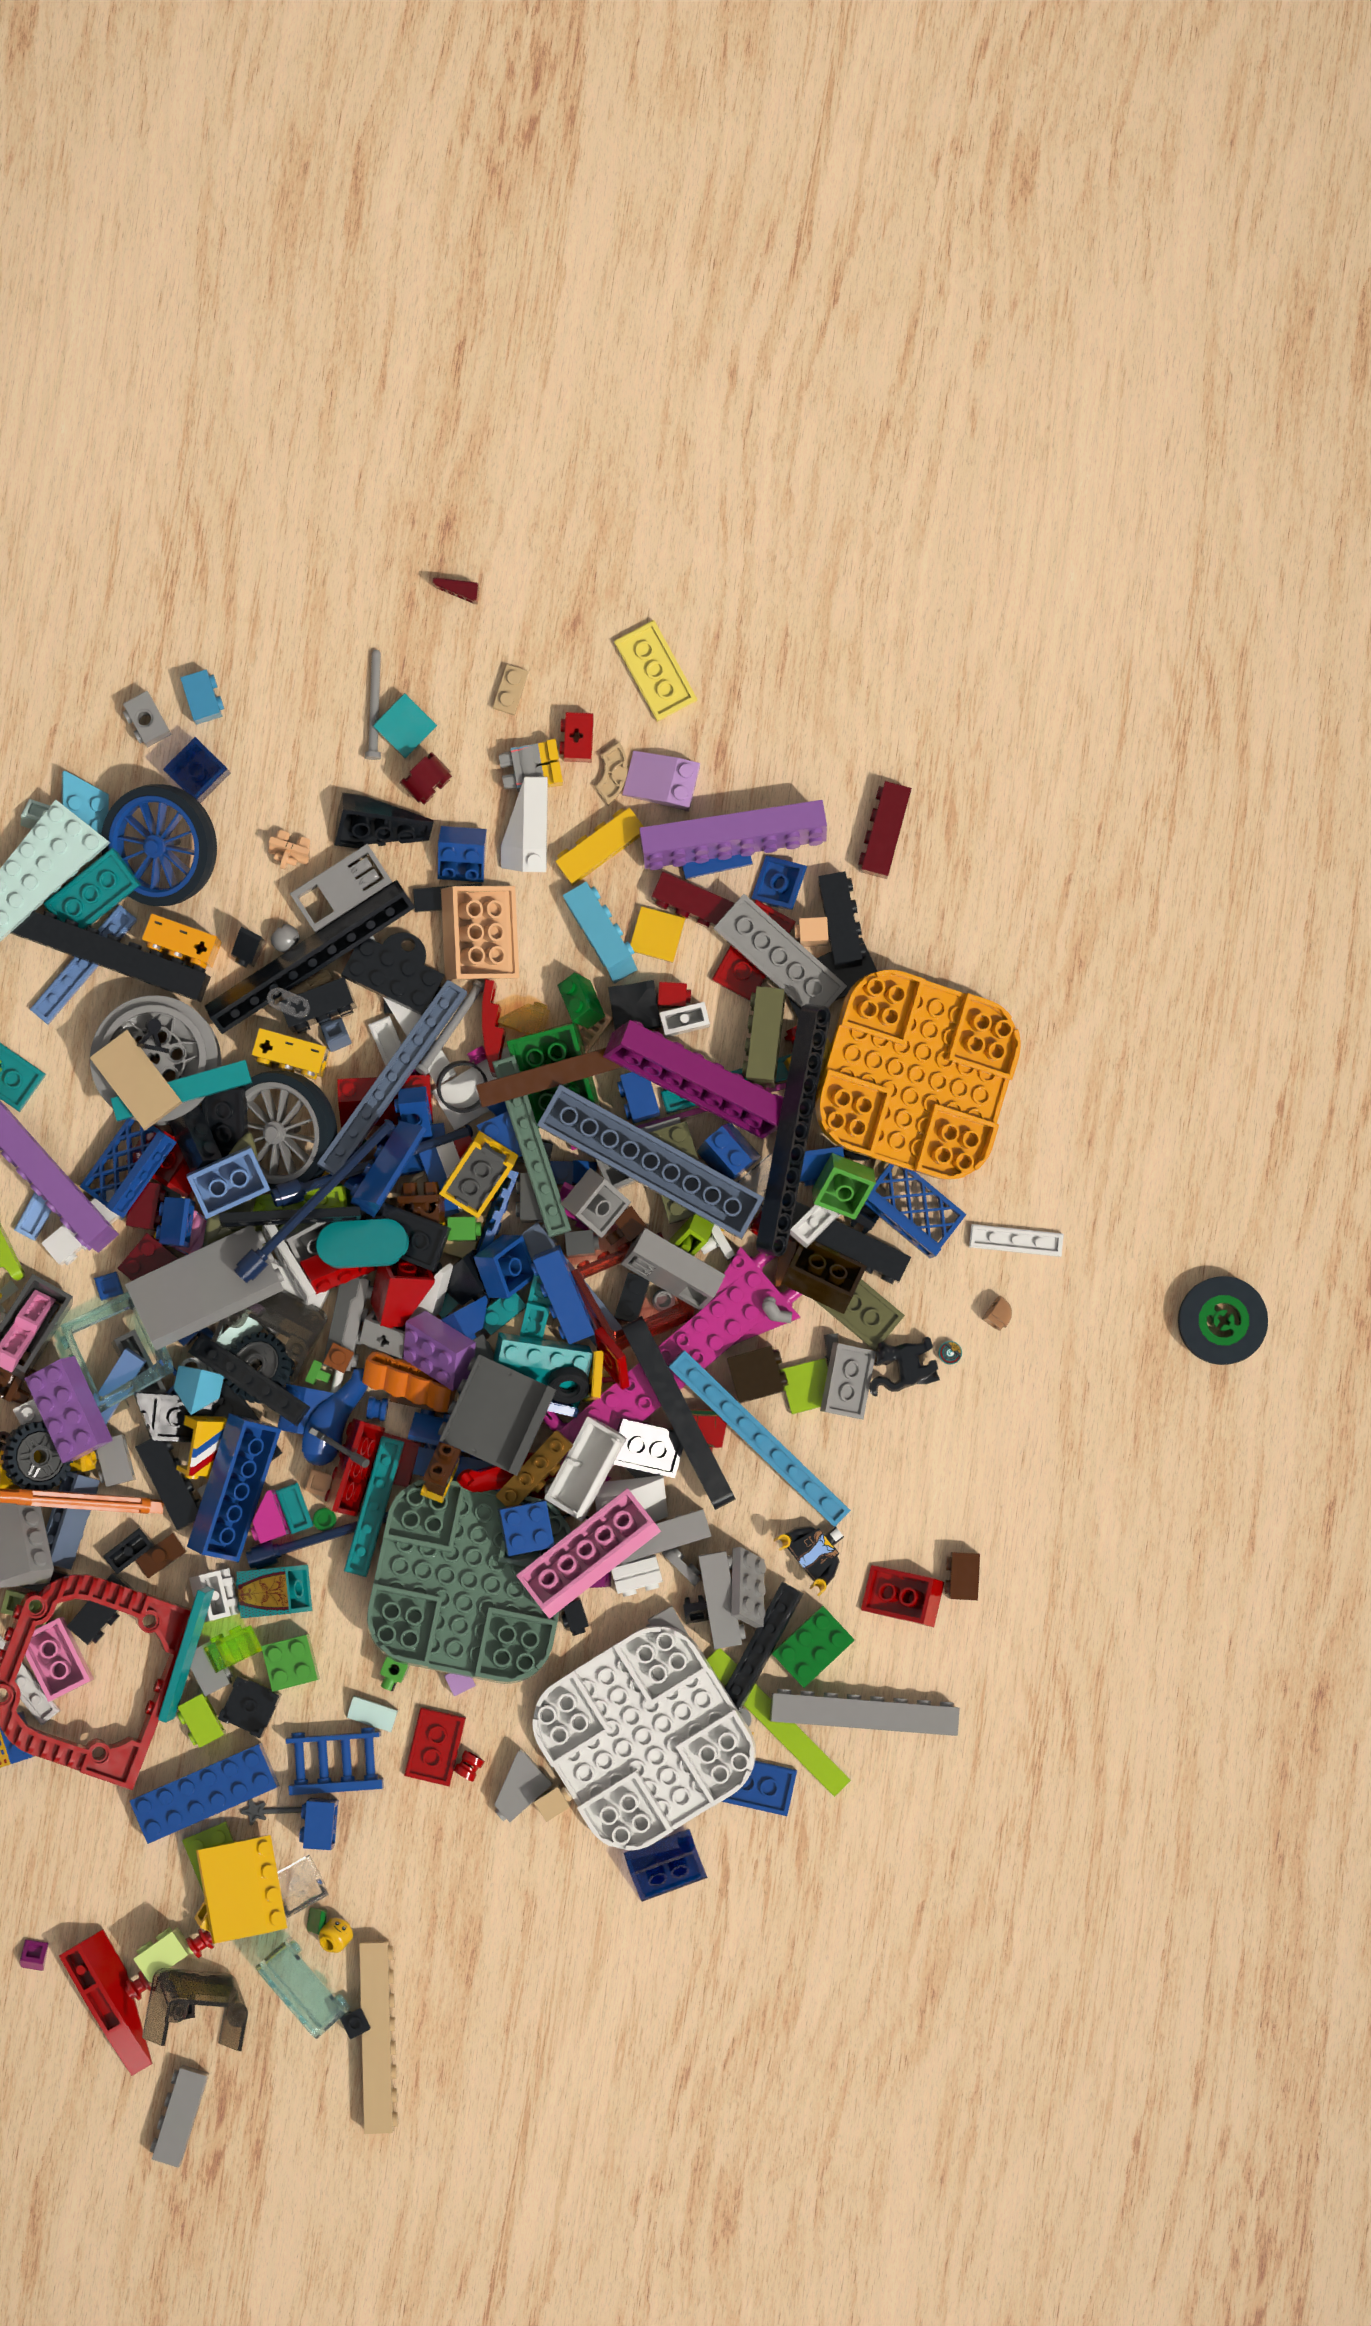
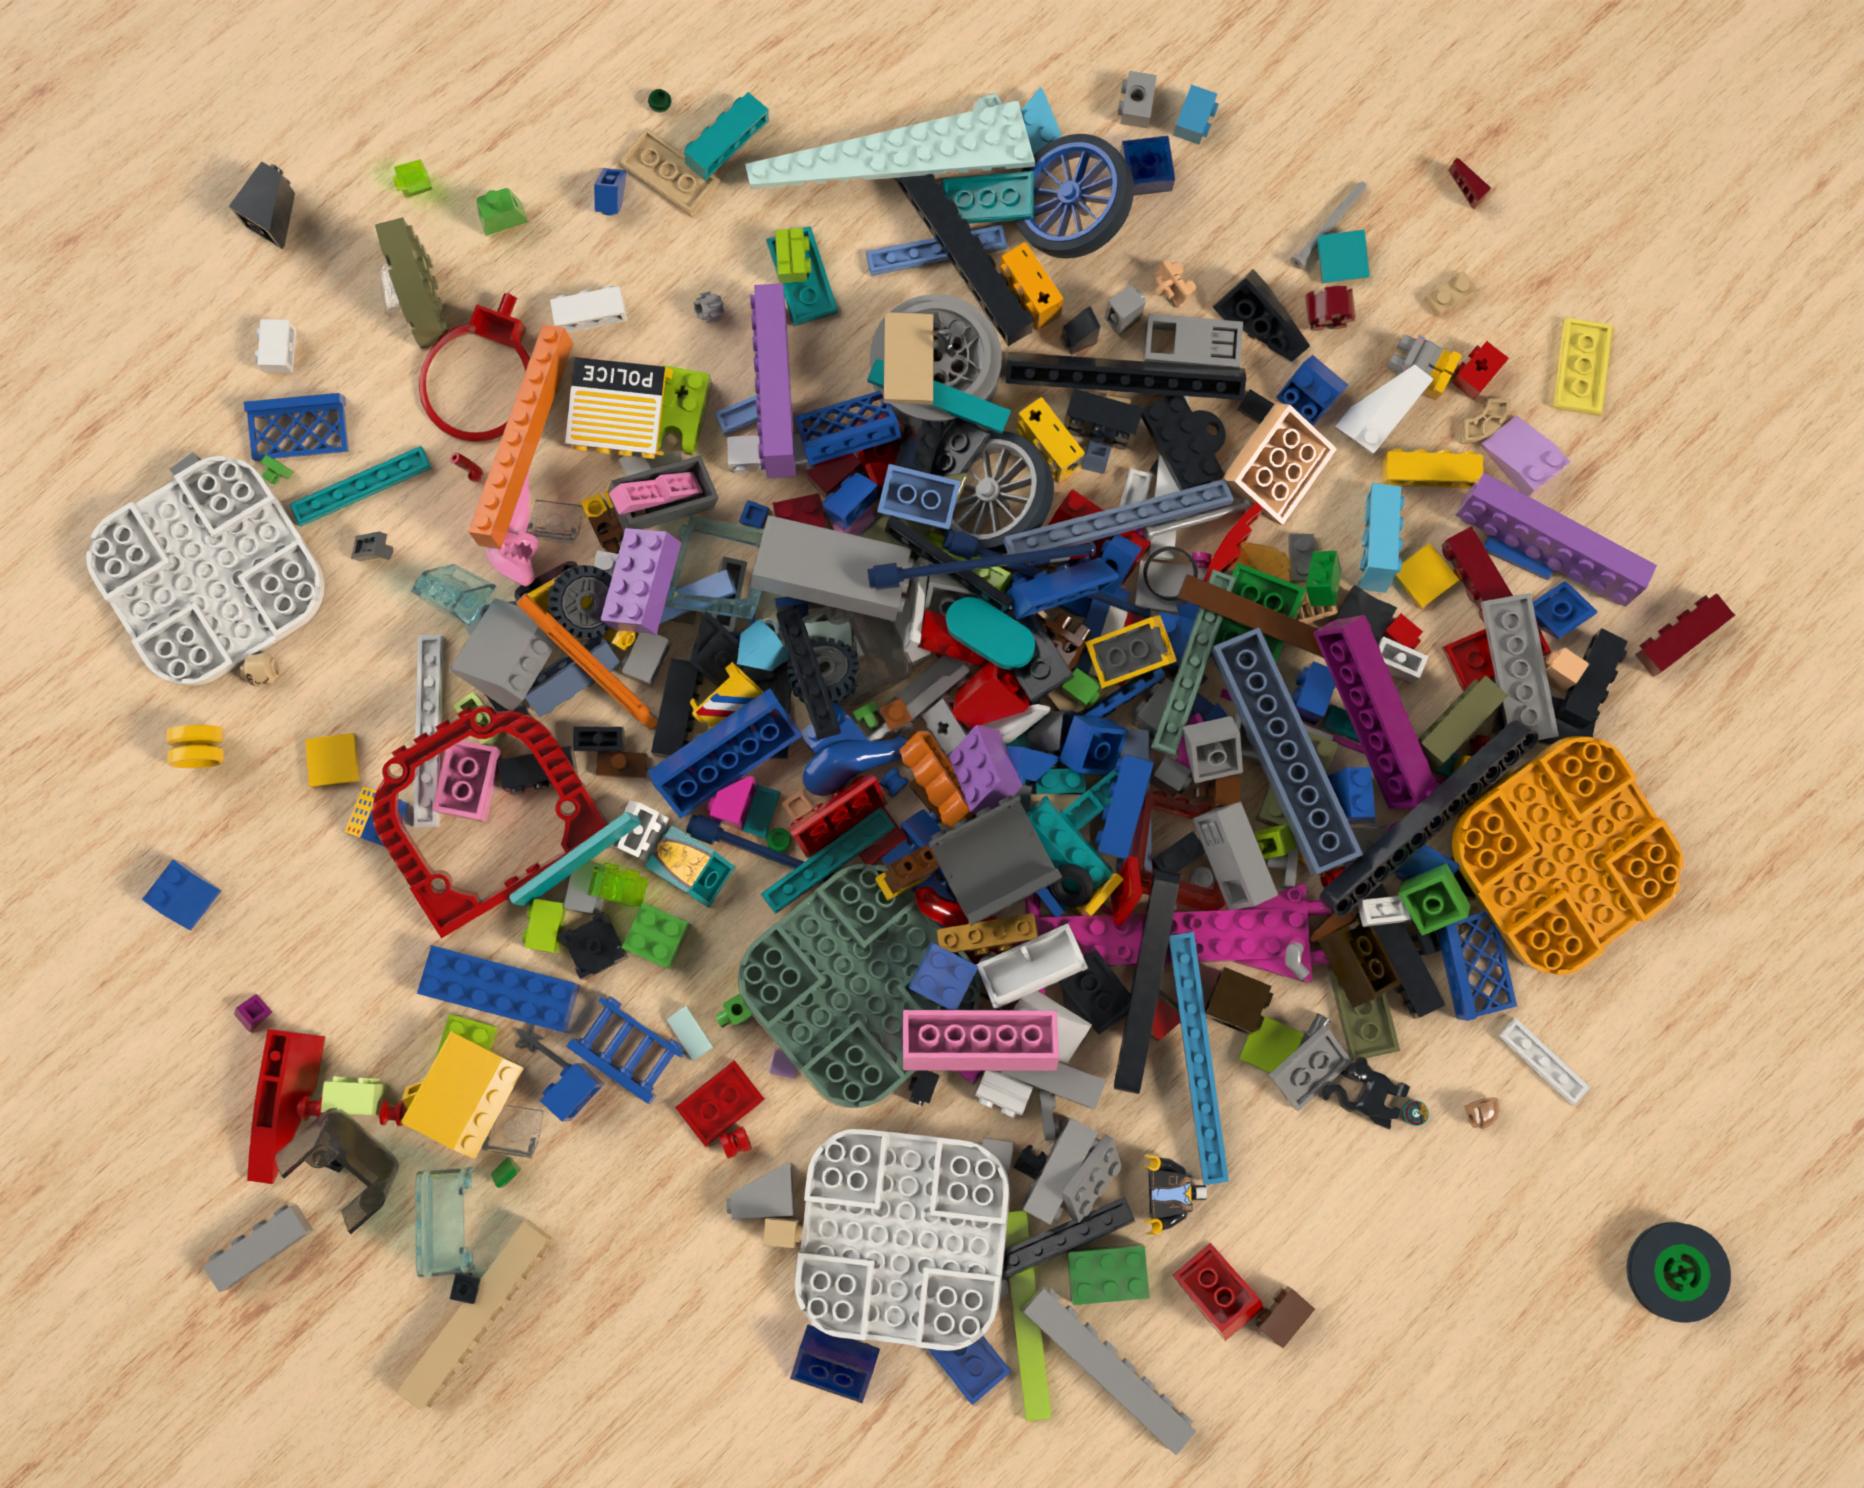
camera: 35 degrees right, 5 degrees down
(269, 903) = (1125, 309): none -> light grey brick
(285, 938) = (1115, 348): light grey piece -> none
(286, 1008) = (1086, 391): clear beam -> none
(335, 1935) = (509, 1198): yellow head -> none
(354, 1456) = (845, 800): dark grey piece -> none
(547, 988) = (1300, 554): none -> flat silver plate

